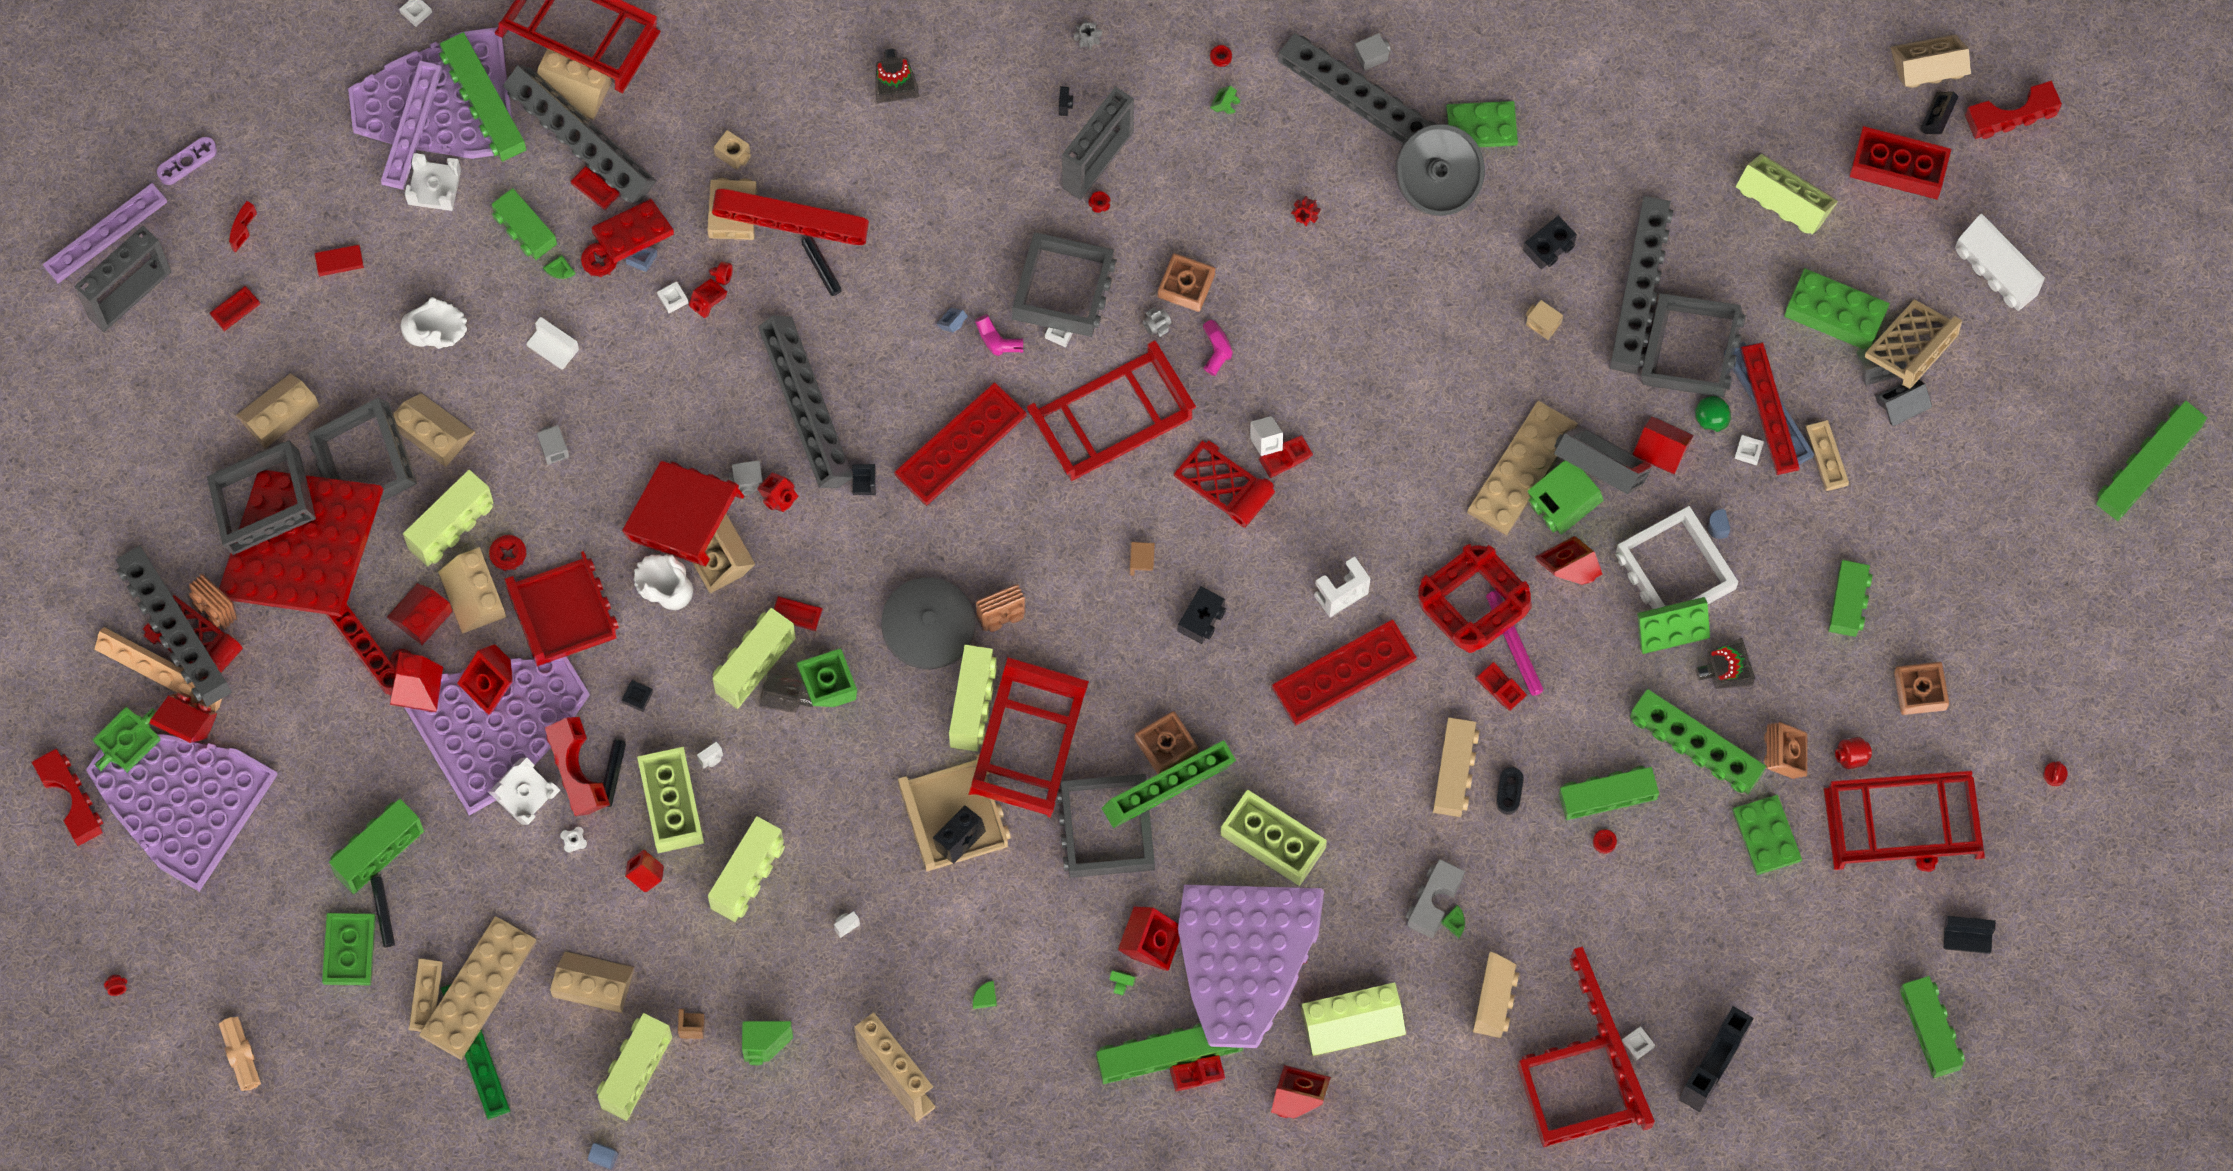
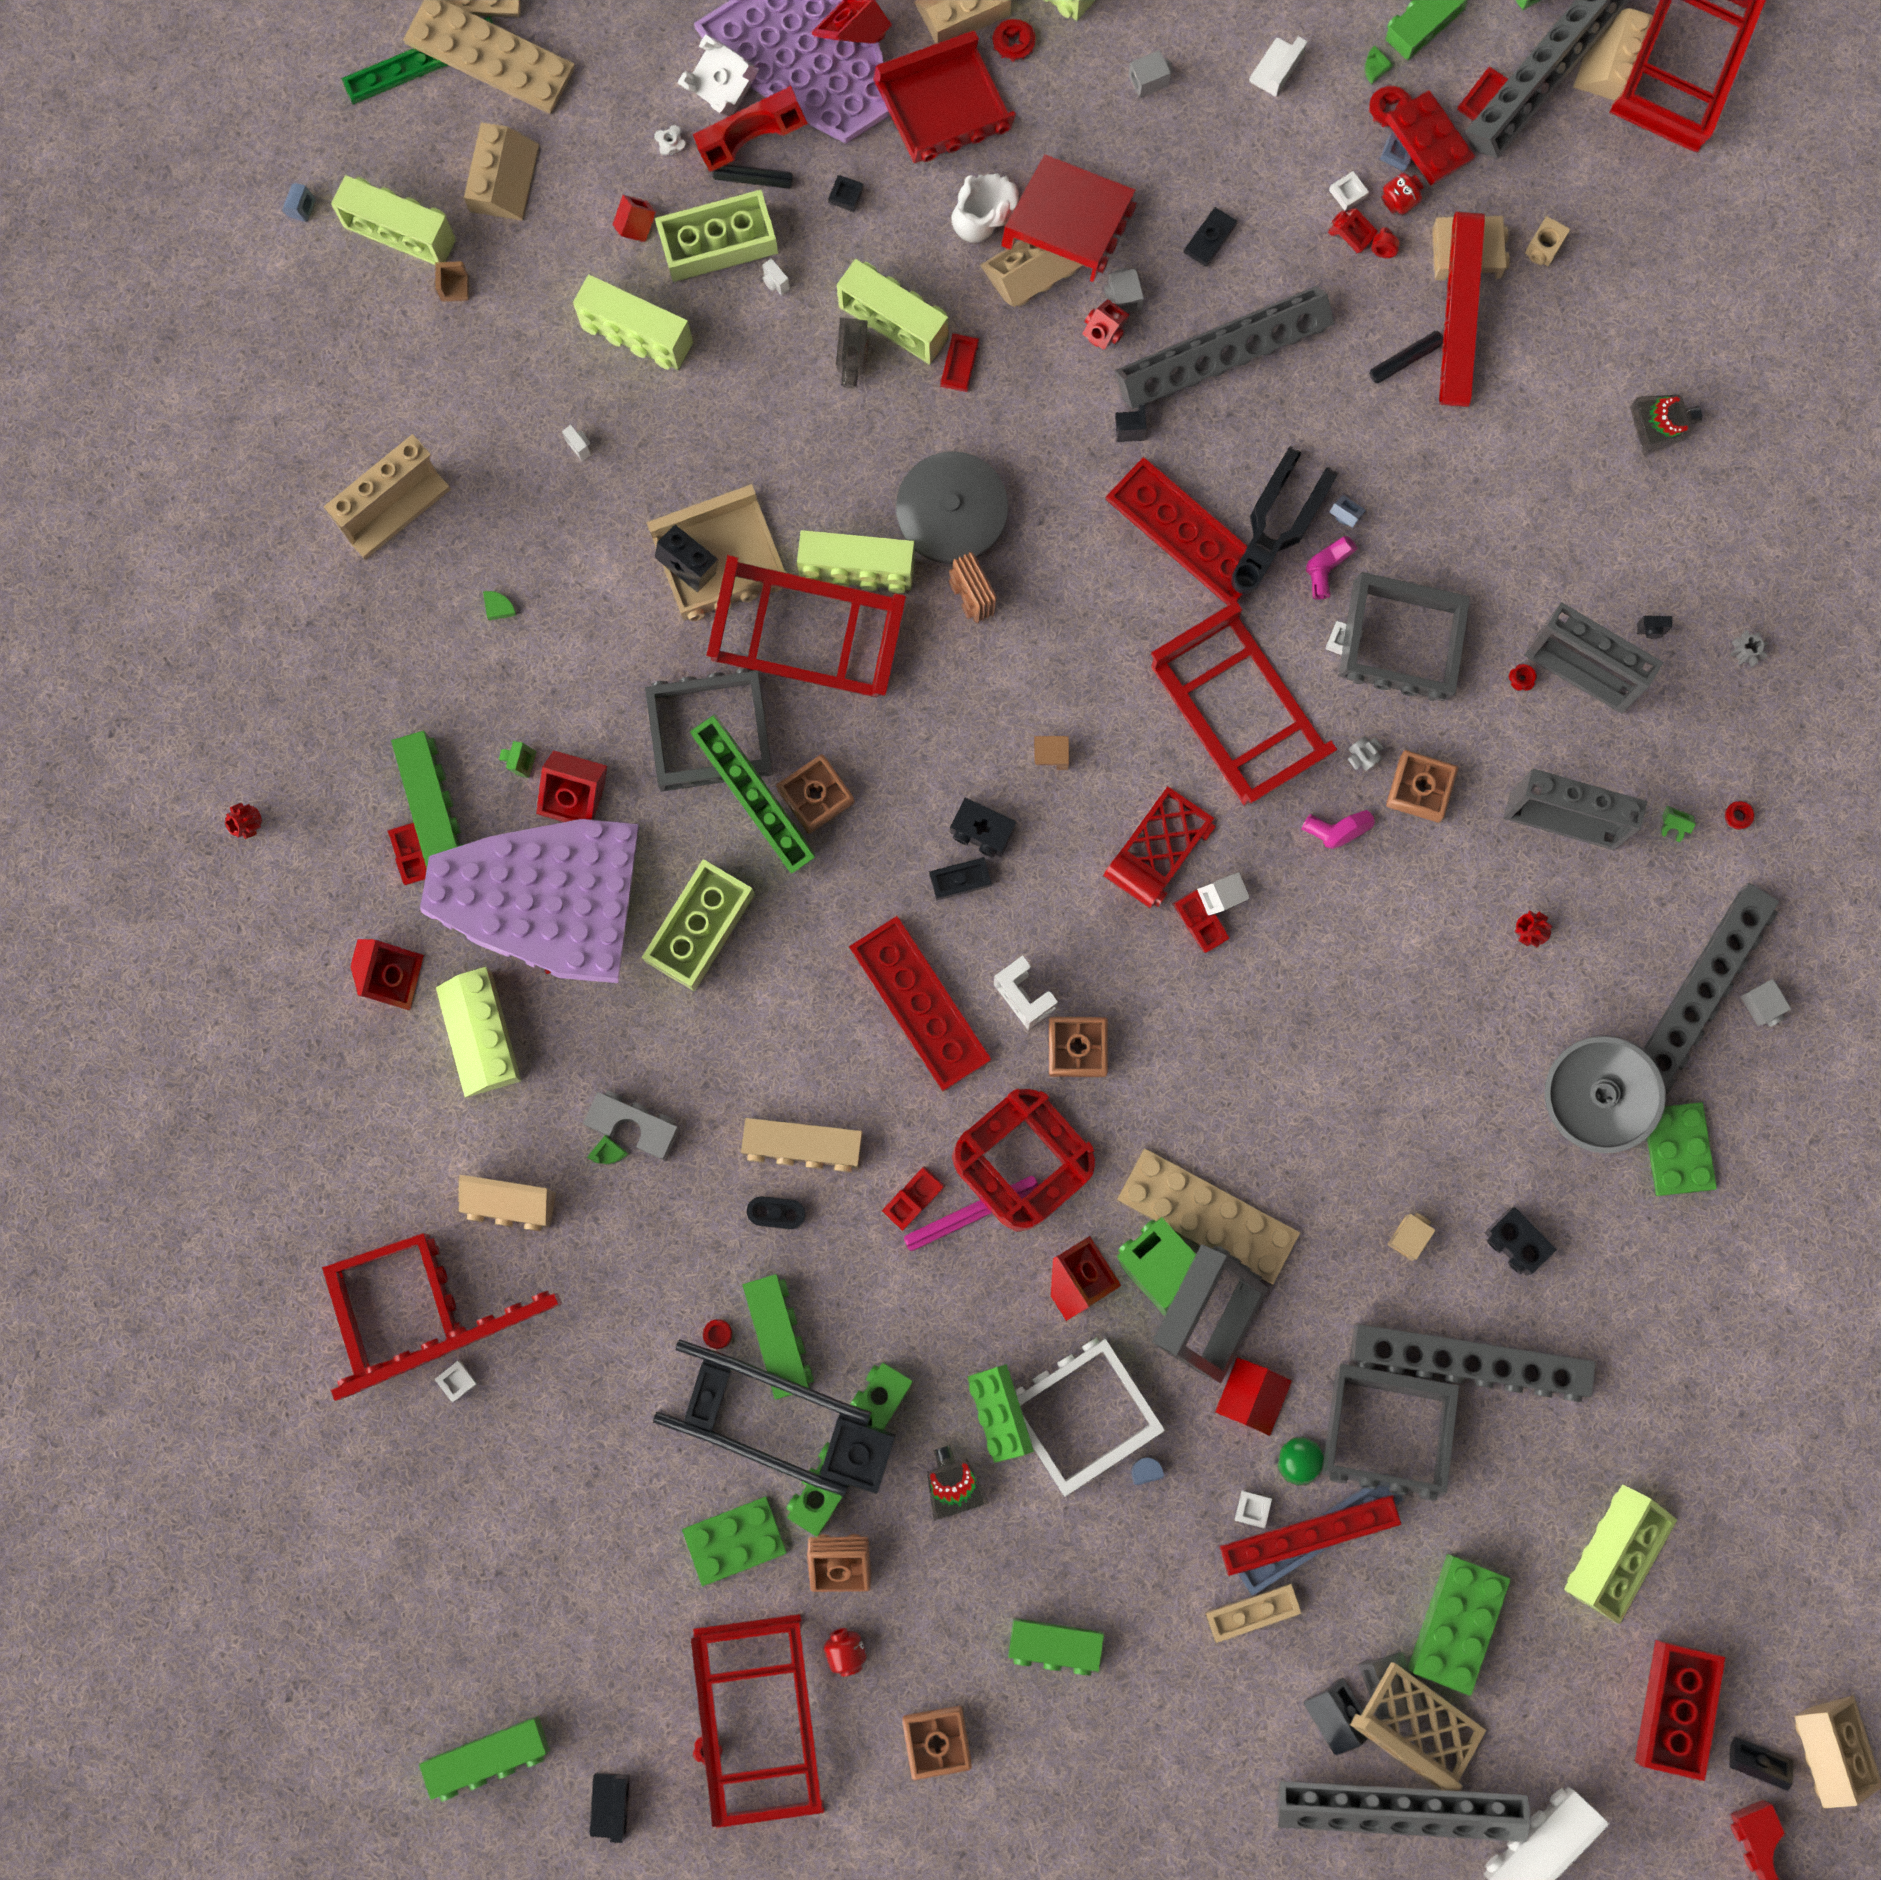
camera: 90 degrees right, 10 degrees up
(680, 256) = (1402, 193): none -> red head
(701, 409) = (1210, 236): none -> black plate
(764, 1039) = (428, 355): bright green slope -> none
(828, 679) = (871, 395): bright green slope -> none
(984, 384) = (1263, 549): none -> black piece
(1218, 168) = (1575, 809): none -> dark grey window
(1242, 636) = (960, 878): none -> black plate
(1396, 543) = (1091, 1033): none -> nougat brick
(1705, 730) = (856, 1450): none -> black plate
(1717, 1059) = (395, 1460): black arch -> none
(1972, 358) = (1403, 1811): none -> dark grey brick

